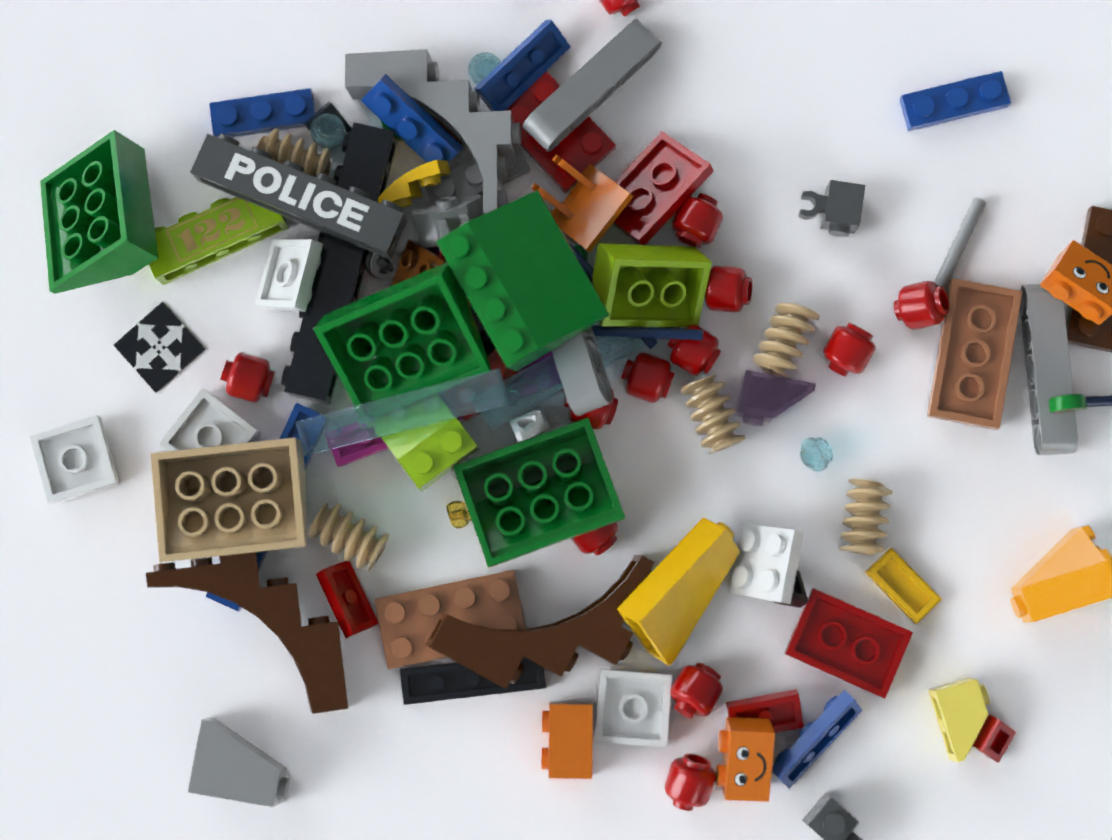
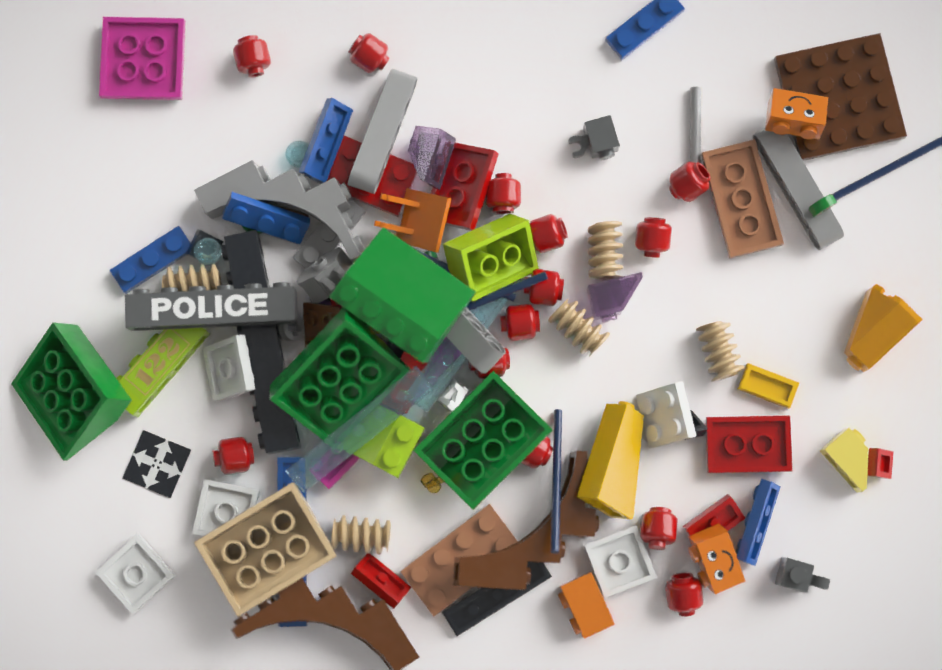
camera: 30 degrees left, 0 degrees up
(408, 187) = (284, 266): yellow slope -> none
(601, 581) = (556, 481): none -> dark blue axle
(635, 135) = (430, 153): none -> clear purple slope
(816, 453) = (664, 321): clear light blue plate -> none

